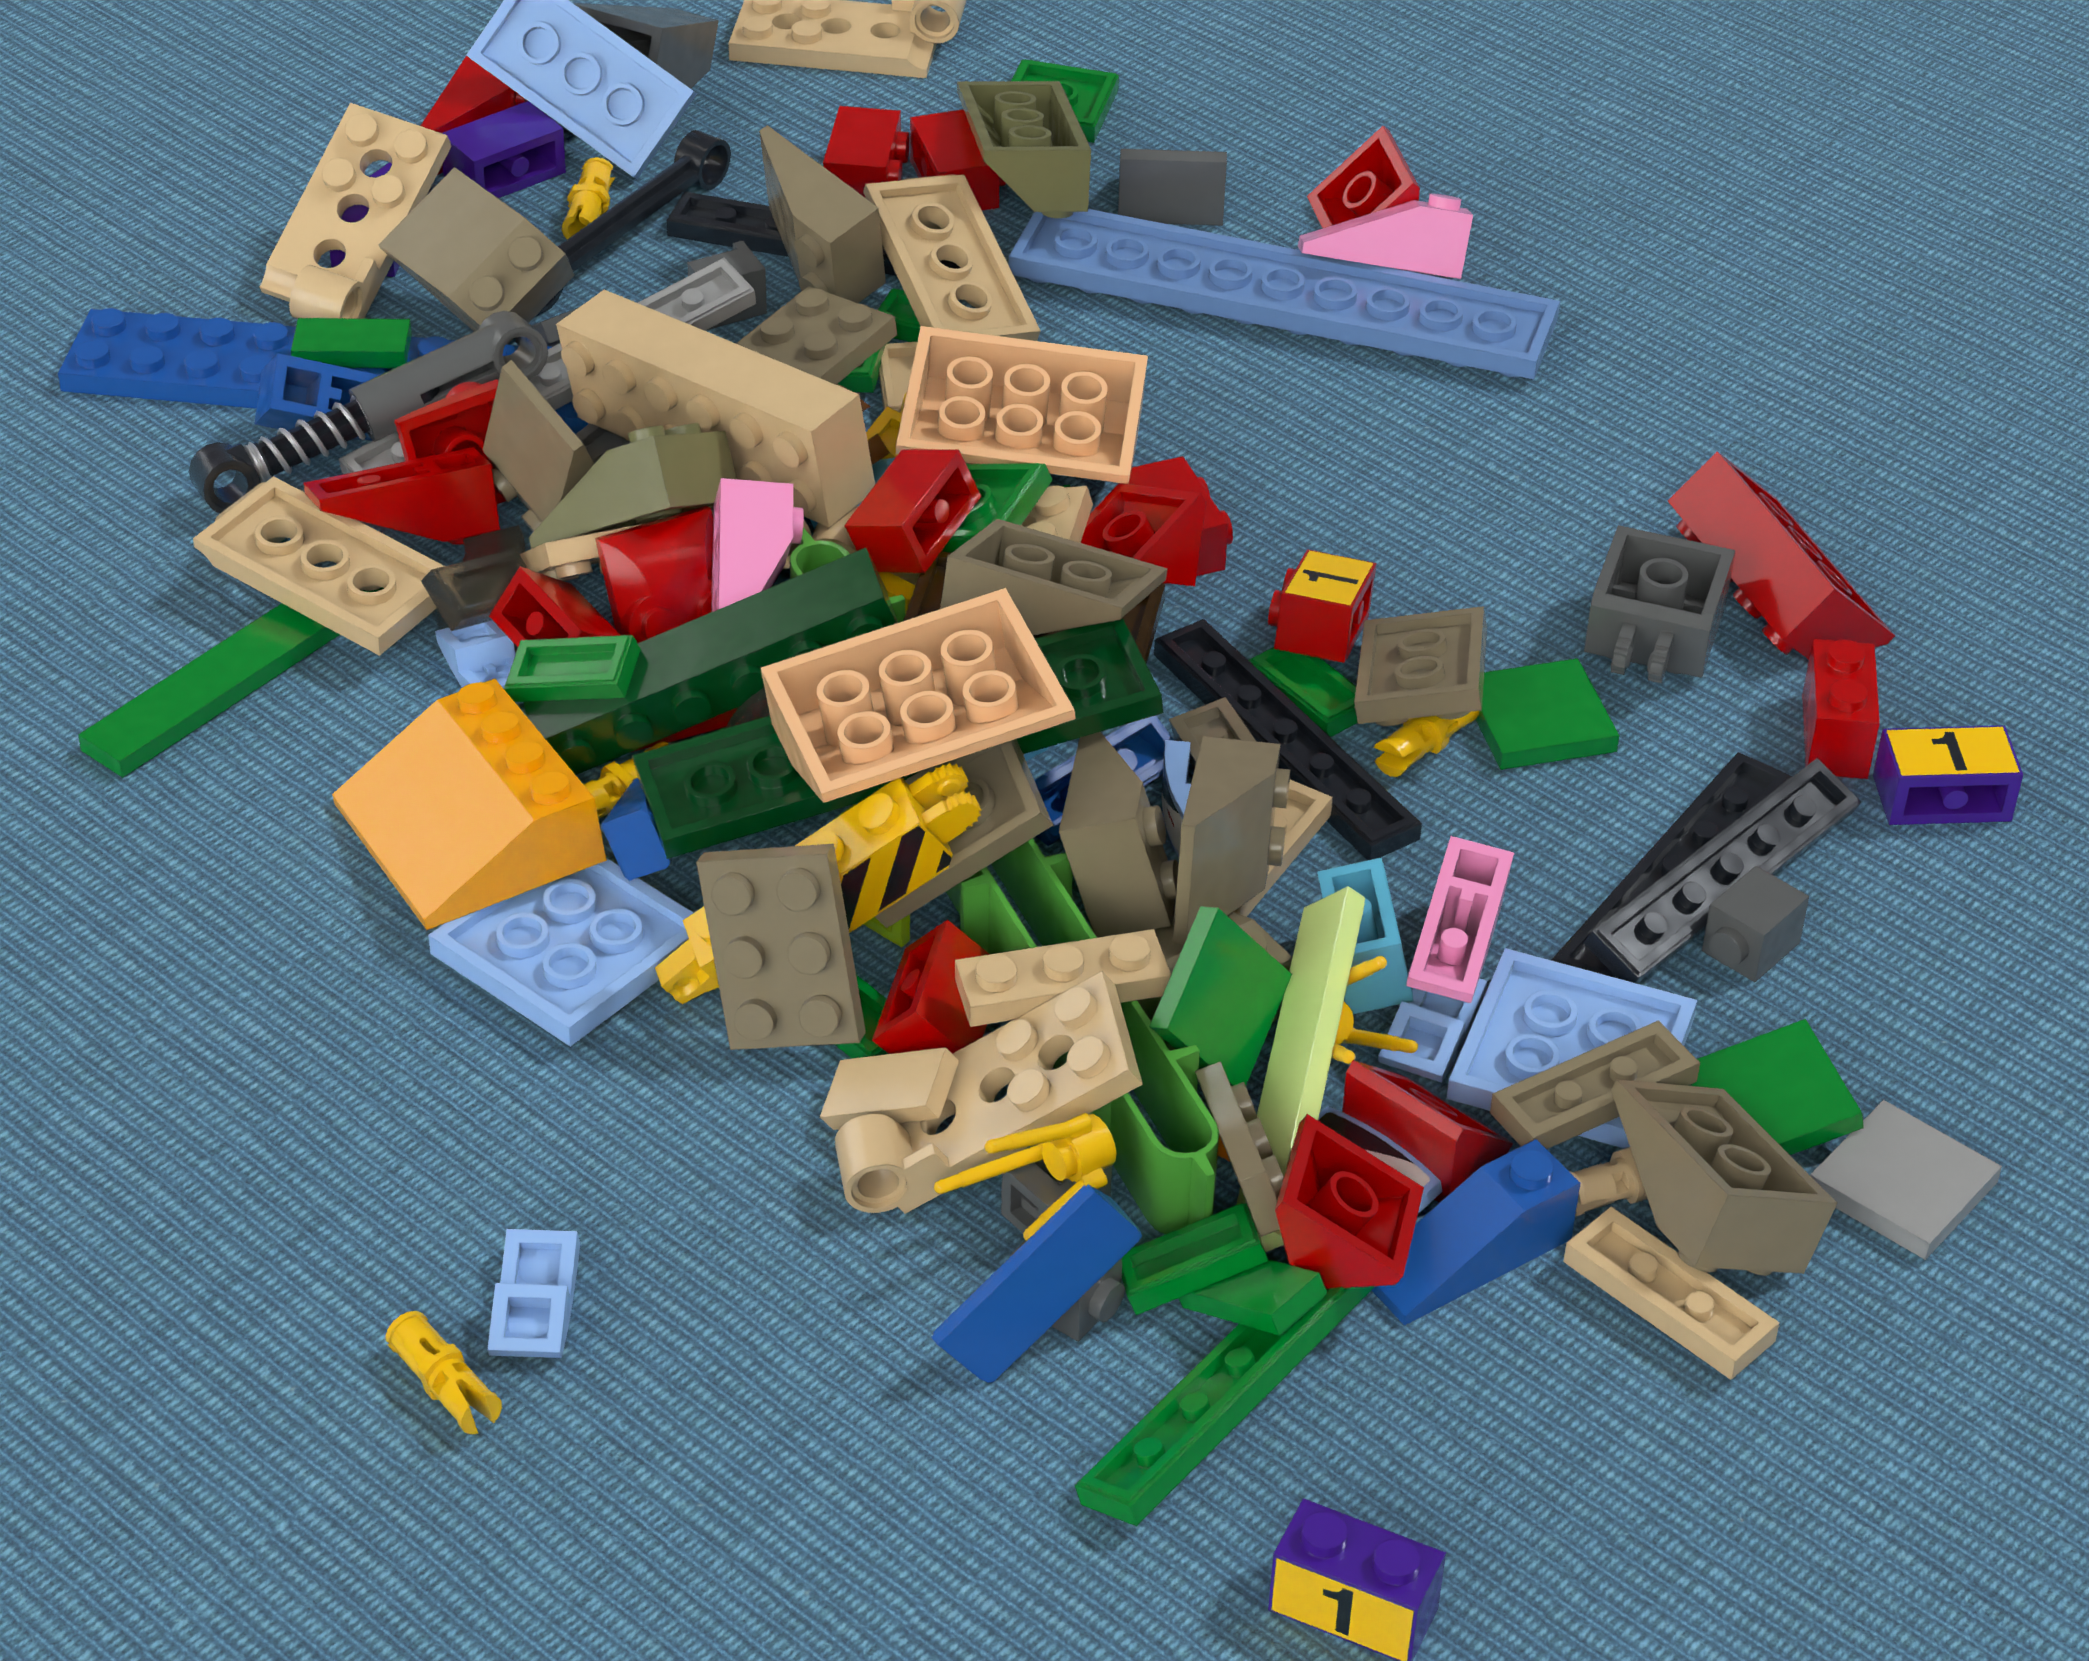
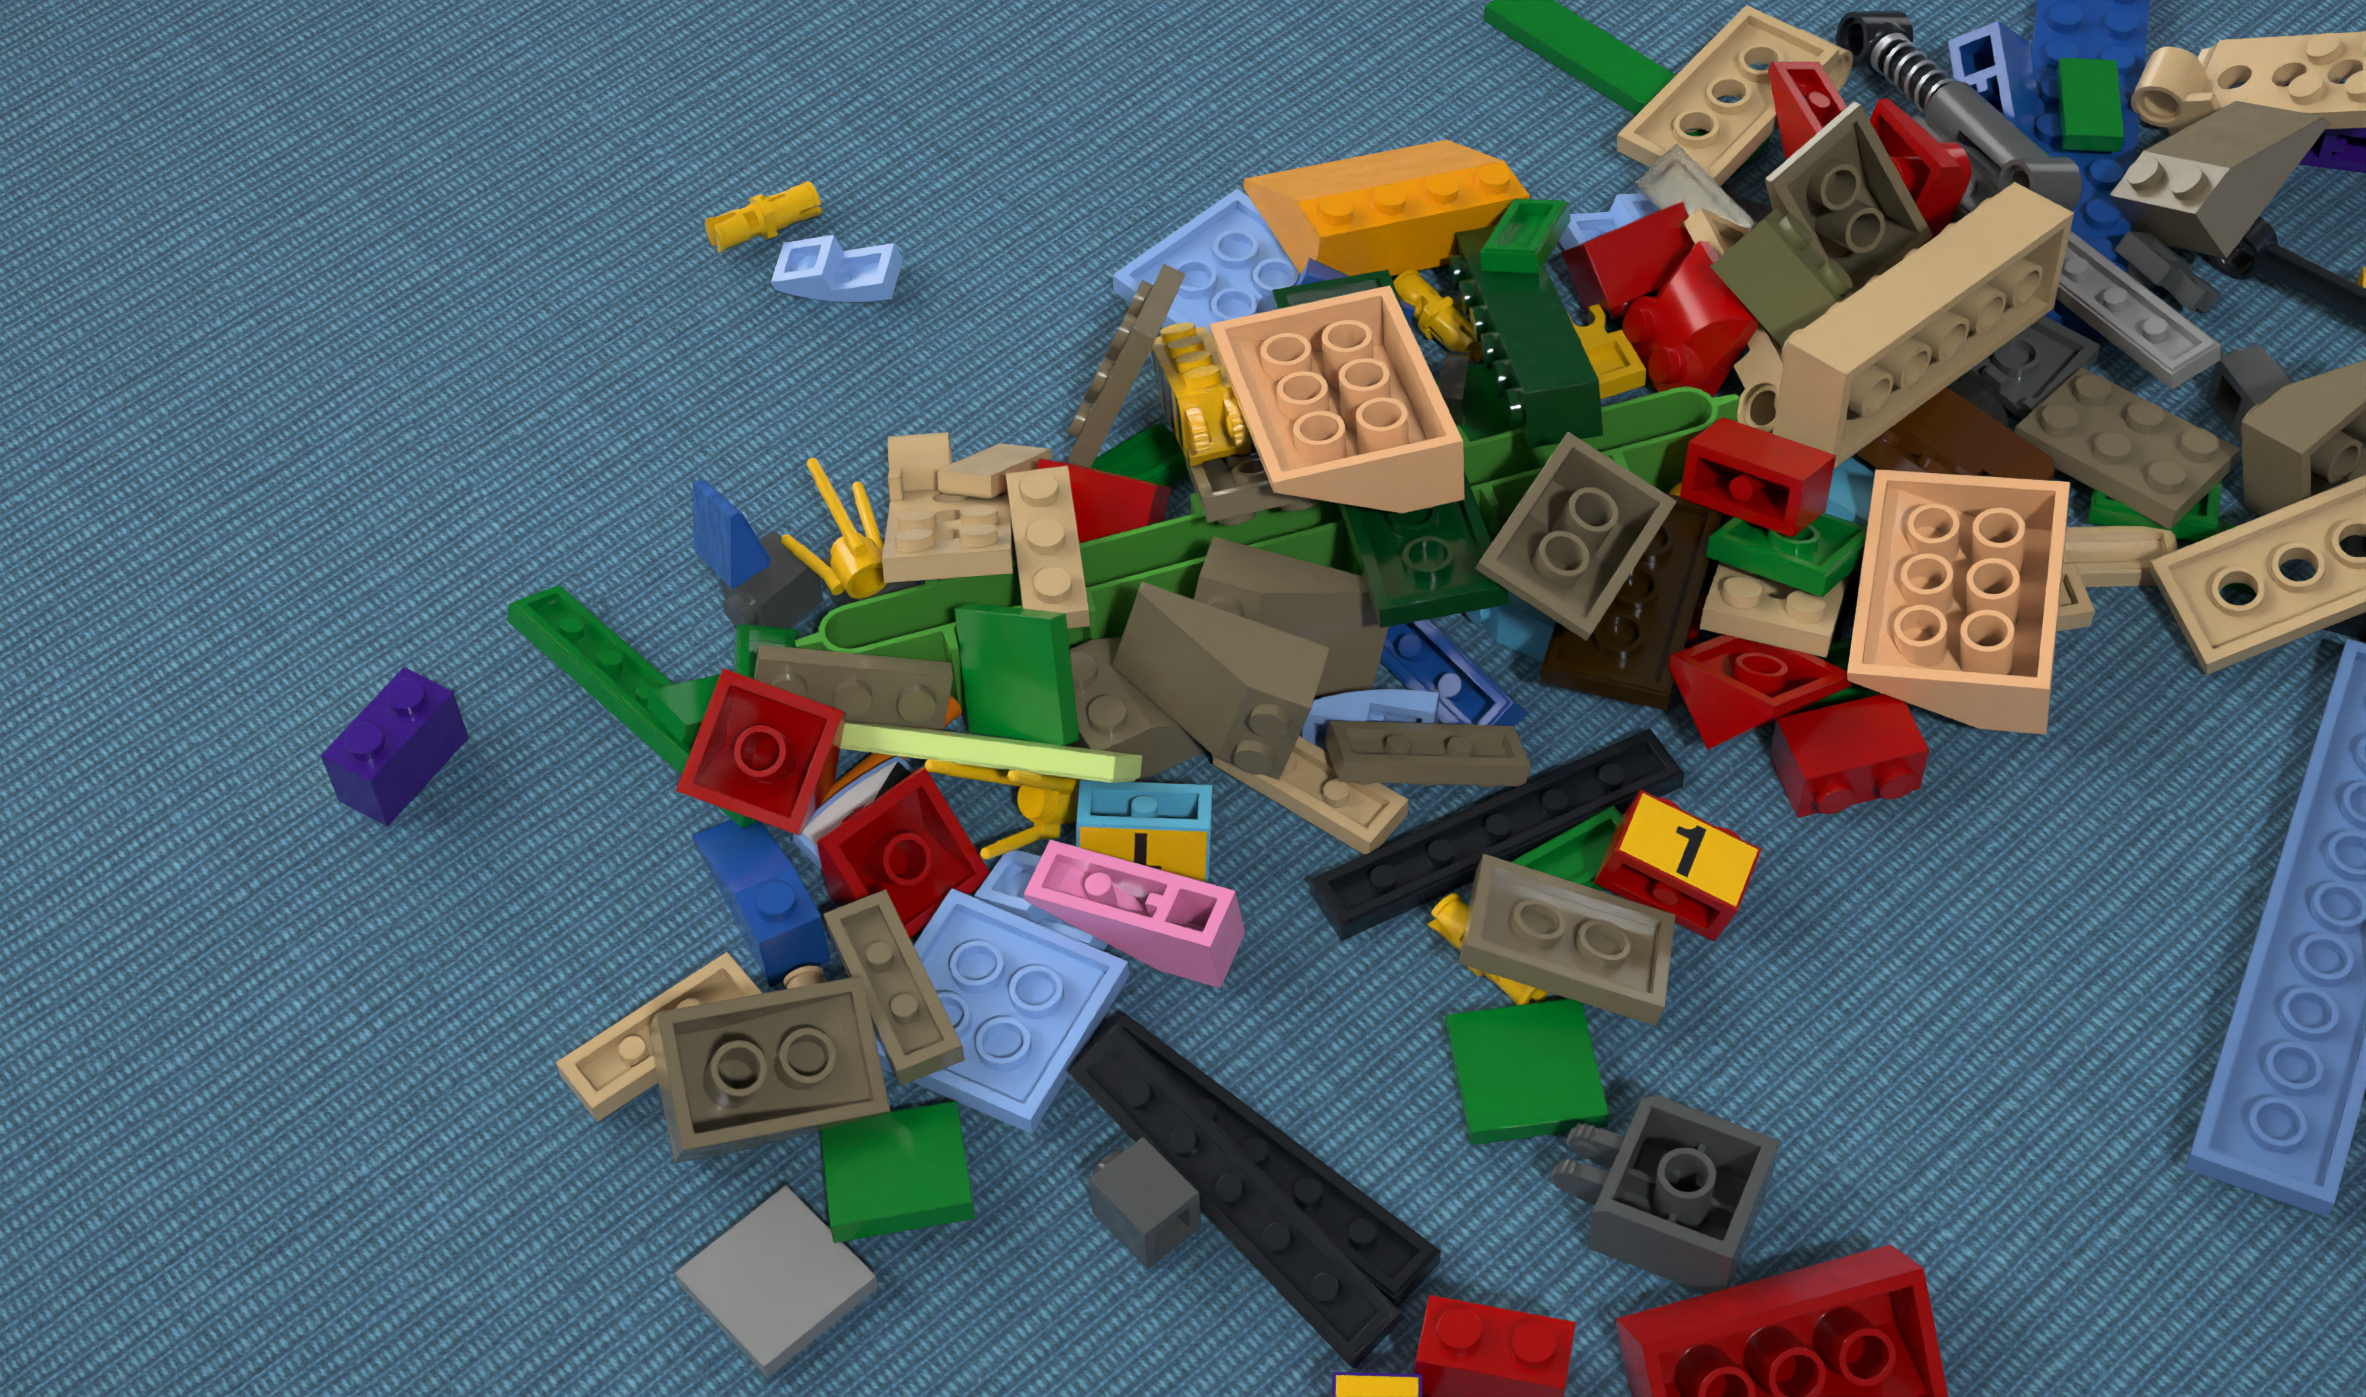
camera: 100 degrees right, 10 degrees up
(751, 537) = (1697, 347): bright pink slope -> none

